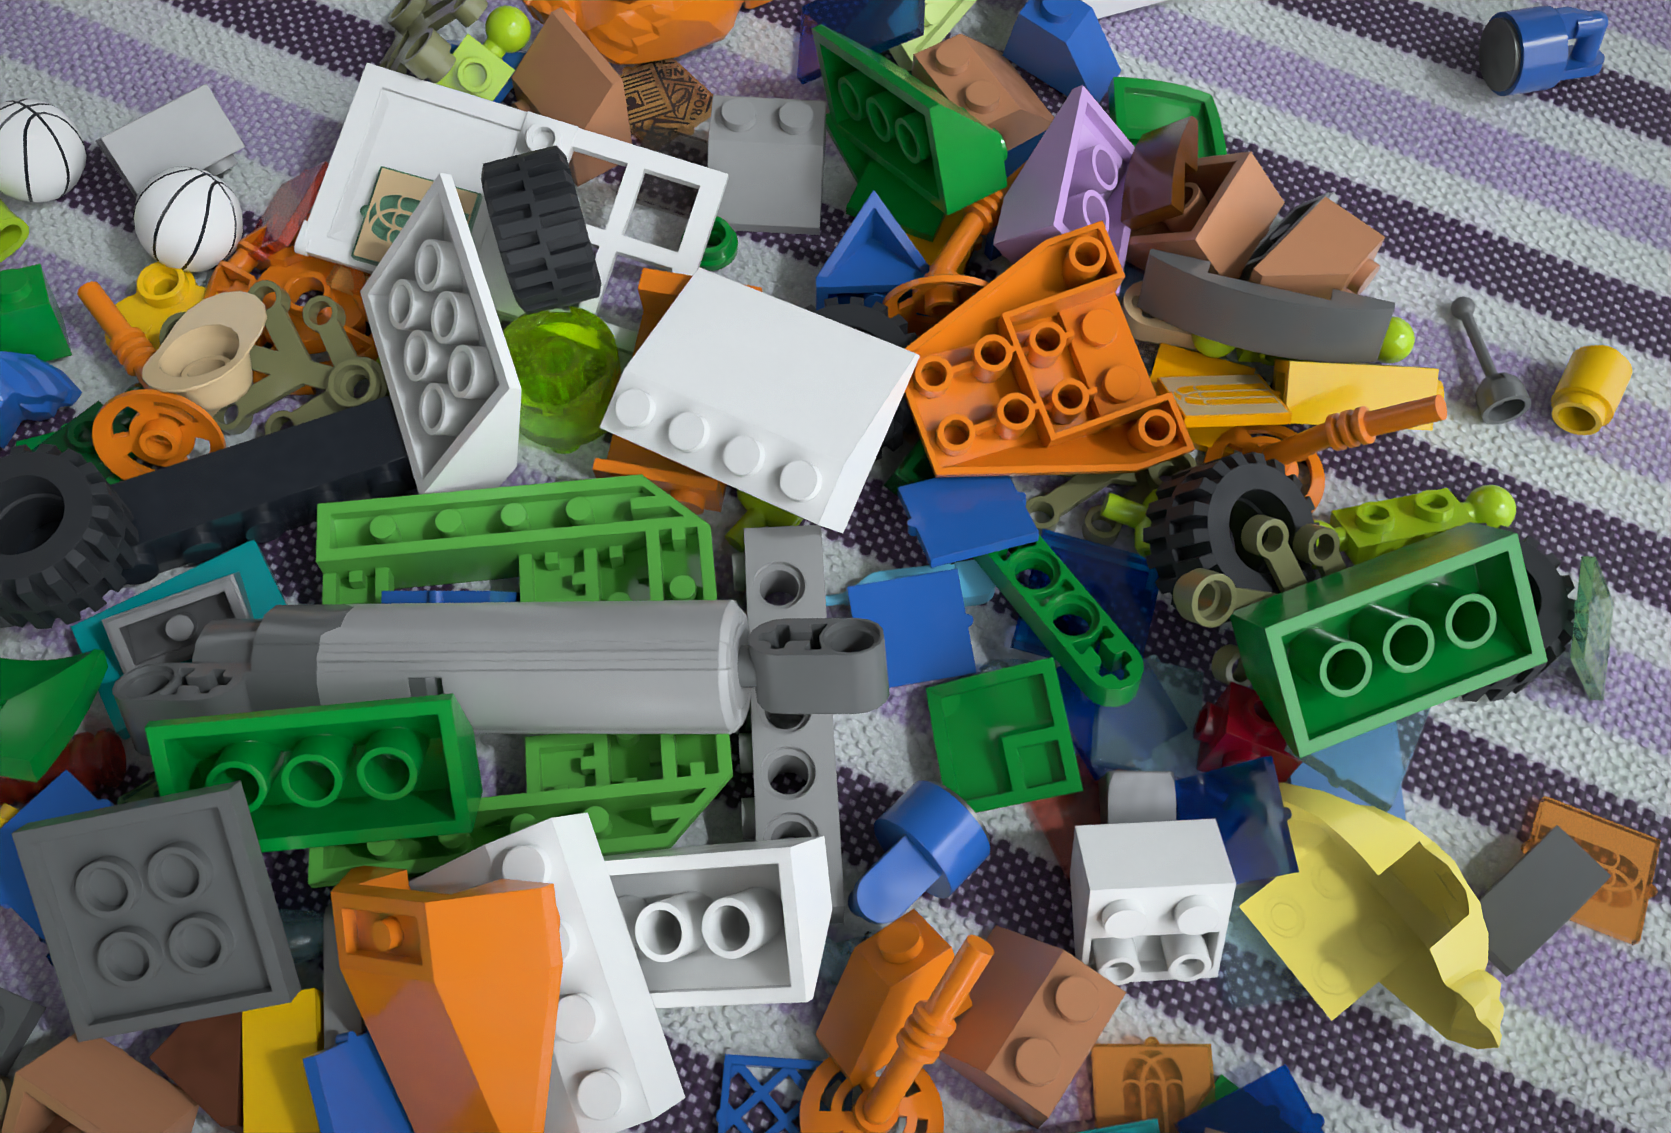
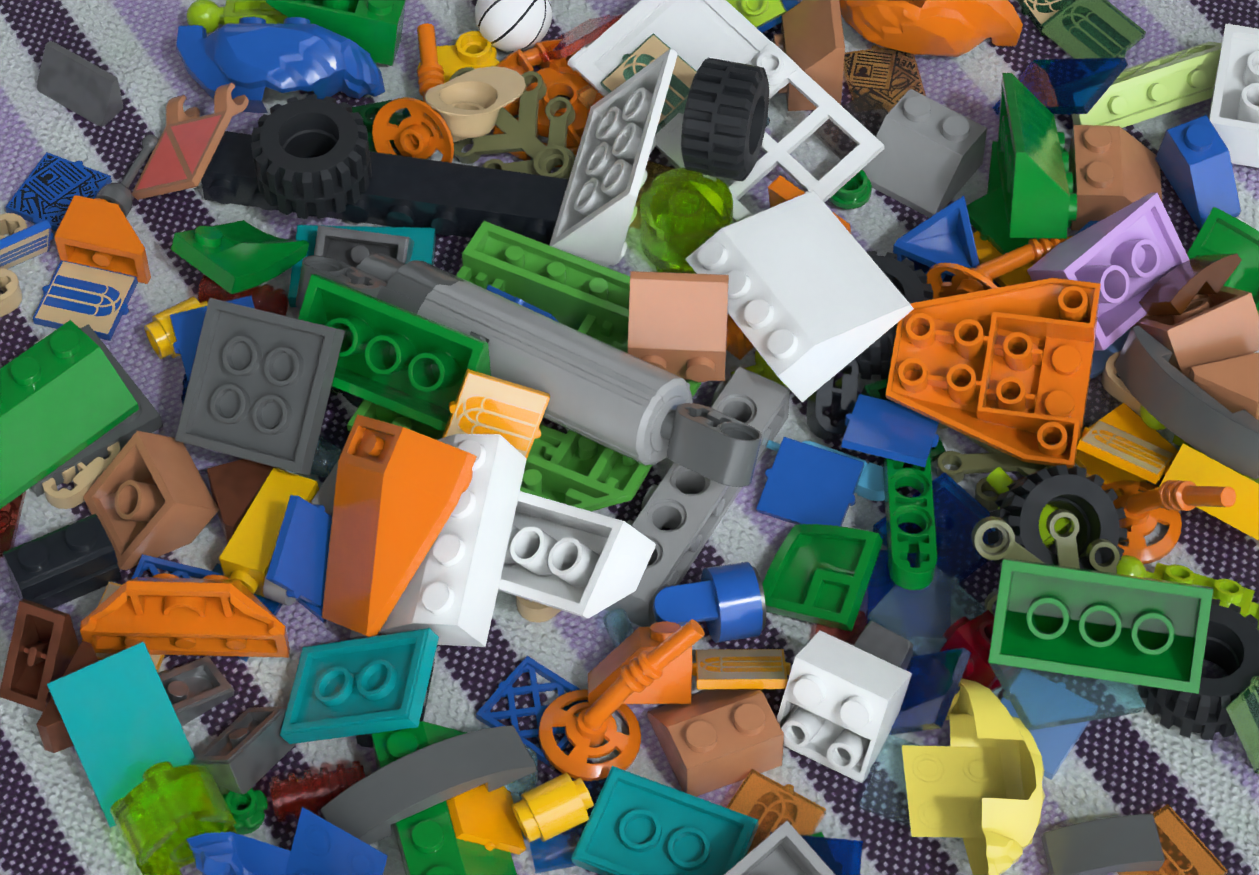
camera: 35 degrees right, 10 degrees down
(512, 779) = (497, 407): none -> piece
(662, 523) = (680, 323): none -> slope
(876, 506) = (843, 400): none -> black beam
(1010, 912) = (741, 669): none -> piece

